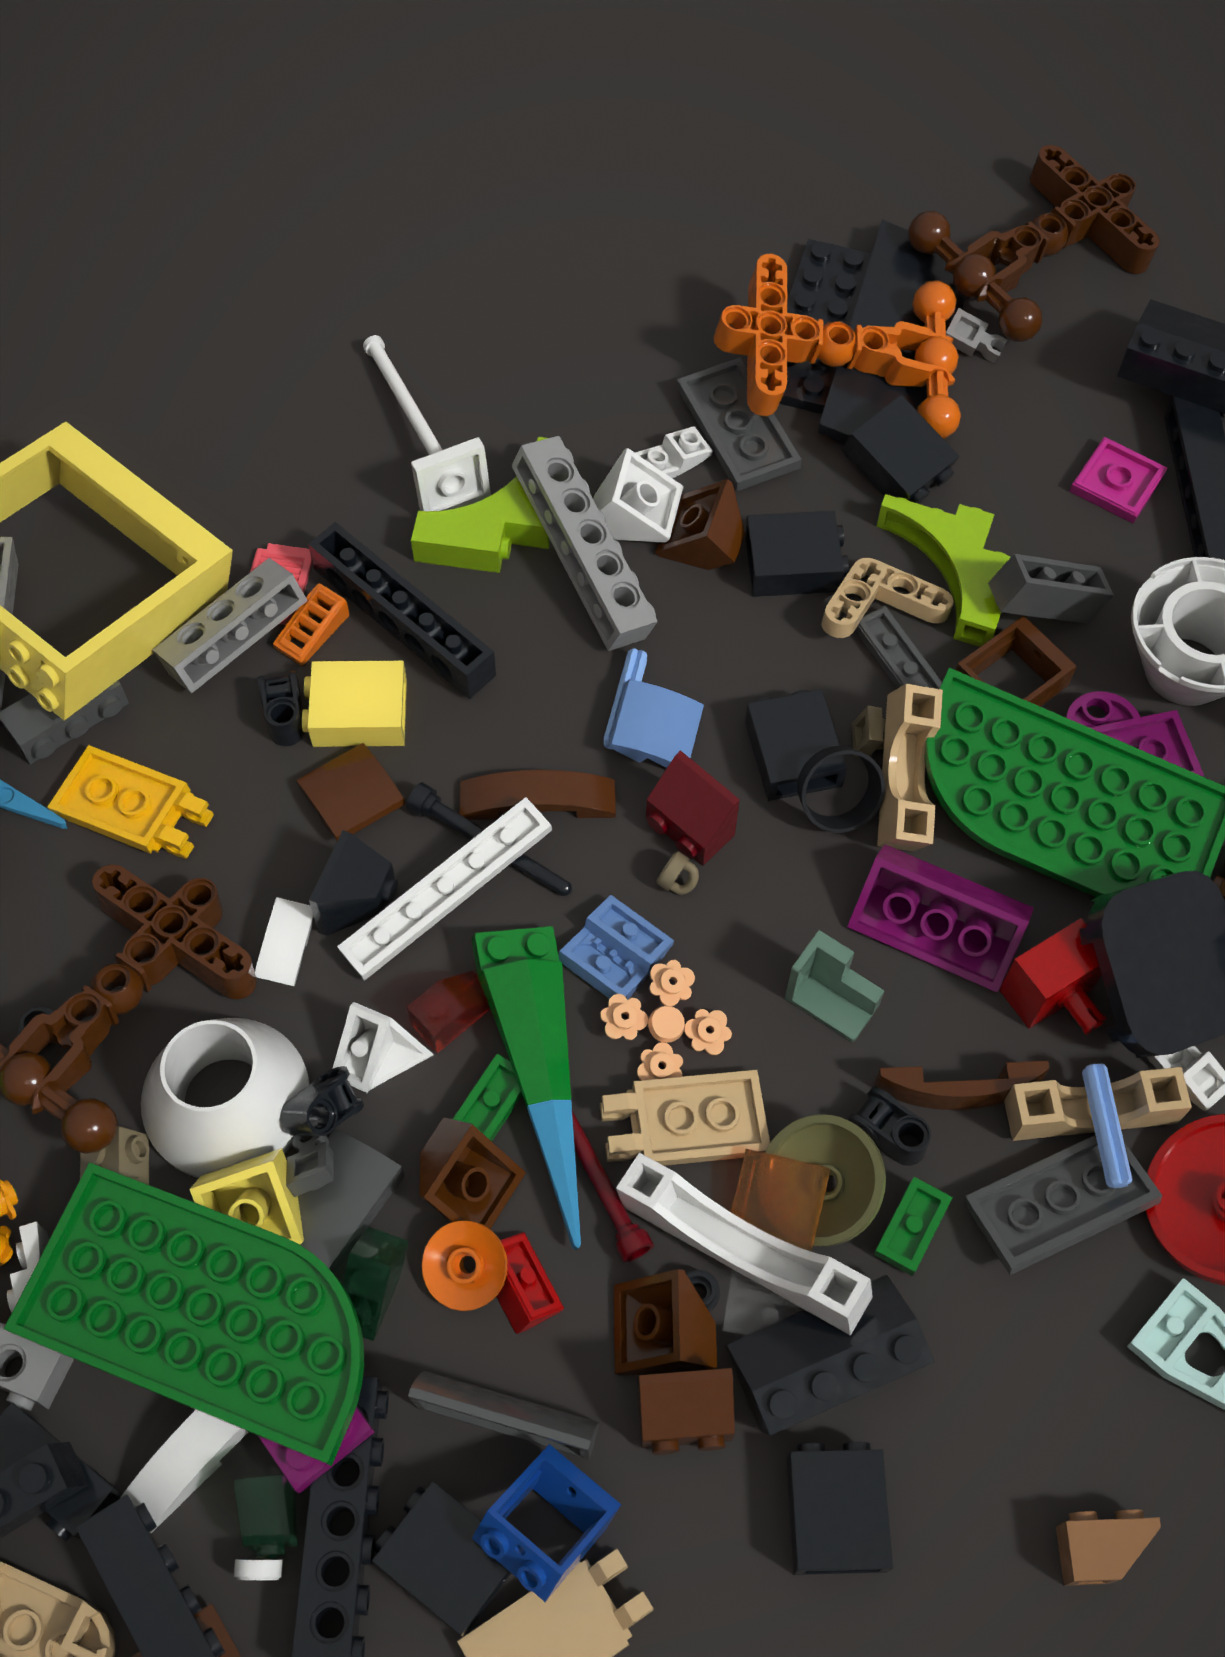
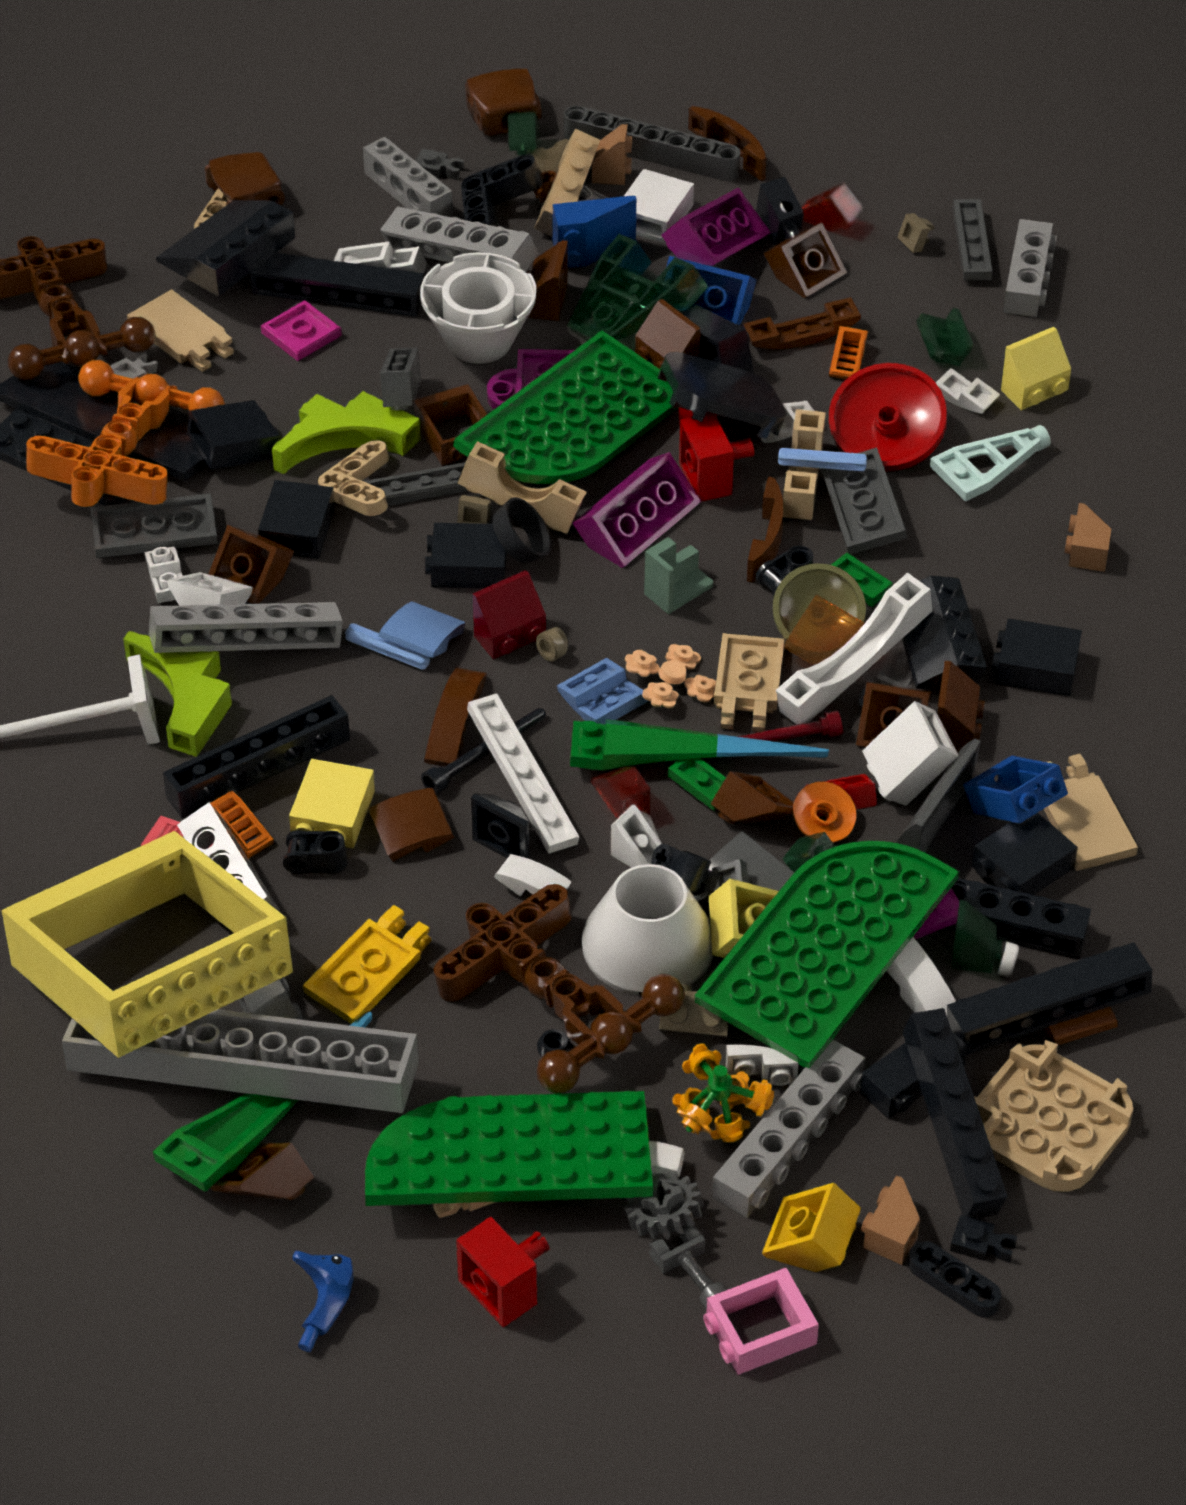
camera: 75 degrees left, 15 degrees down
(574, 1357) = (909, 754): none -> white brick
(1065, 364) = (184, 330): none -> tan tile

